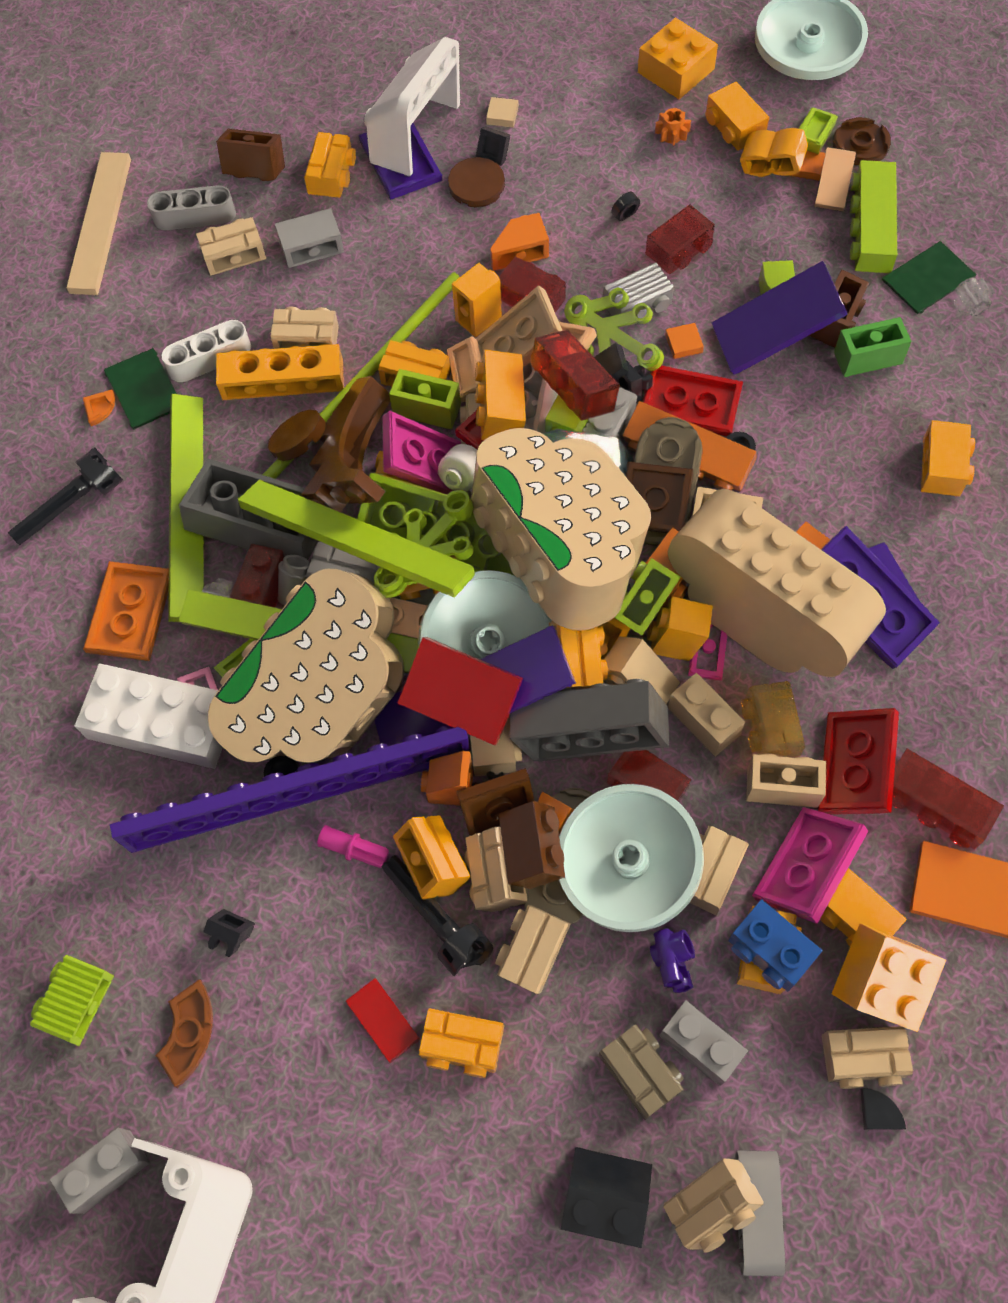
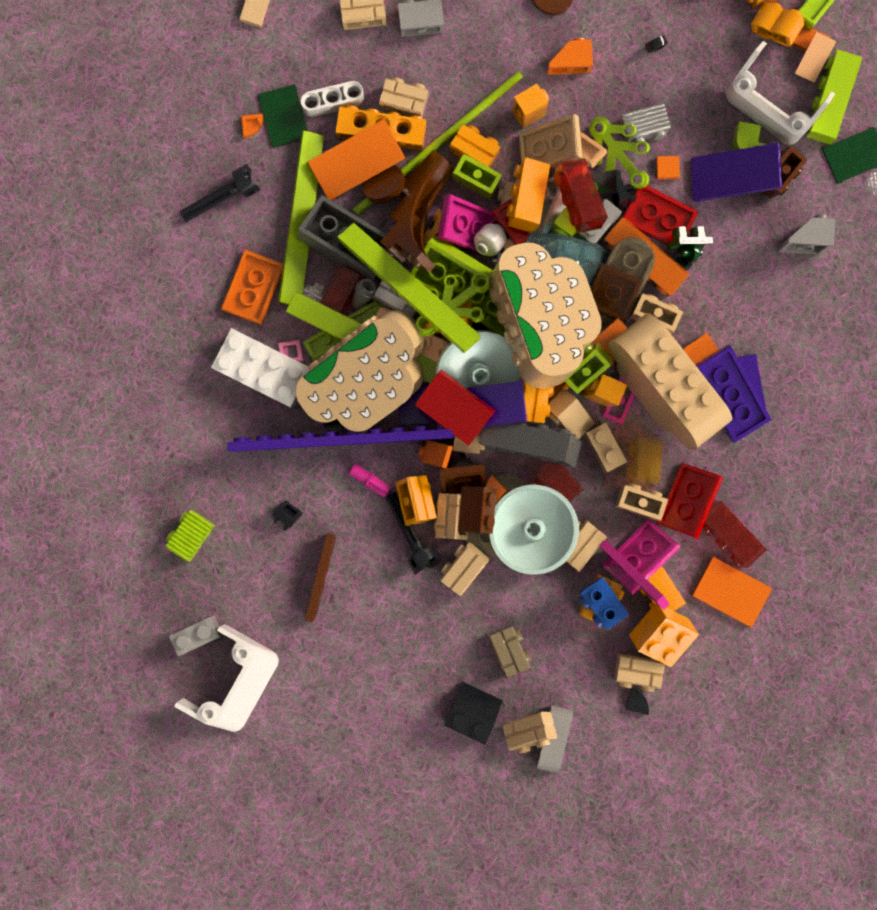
camera: 15 degrees right, 20 degrees up
(189, 1033) = (256, 568): dark orange tile -> none
(252, 410) = (356, 159): none -> orange tile
(299, 1020) = (320, 577): none -> reddish brown tile
(382, 1020) = (368, 587): red tile -> none
(461, 1042) = (411, 611): light orange brick -> none
(463, 364) = (510, 154): light nougat tile -> none
(523, 276) = (569, 99): clear red brick -> none
(670, 954) = (544, 588): dark purple plate -> none
(680, 239) = (687, 84): clear red brick -> none
(703, 1043) = (548, 644): light grey brick -> none
(743, 418) = (691, 245): none -> dark green hips
(777, 243) = (763, 112): none -> white windscreen
(812, 886) = (634, 574): none -> dark pink tile
(850, 138) = (843, 29): reddish brown tile -> none
(872, 347) = (793, 208): bright green brick -> none
(908, 373) = (812, 237): none -> light grey slope
(947, 458) = (816, 305): light orange brick -> none

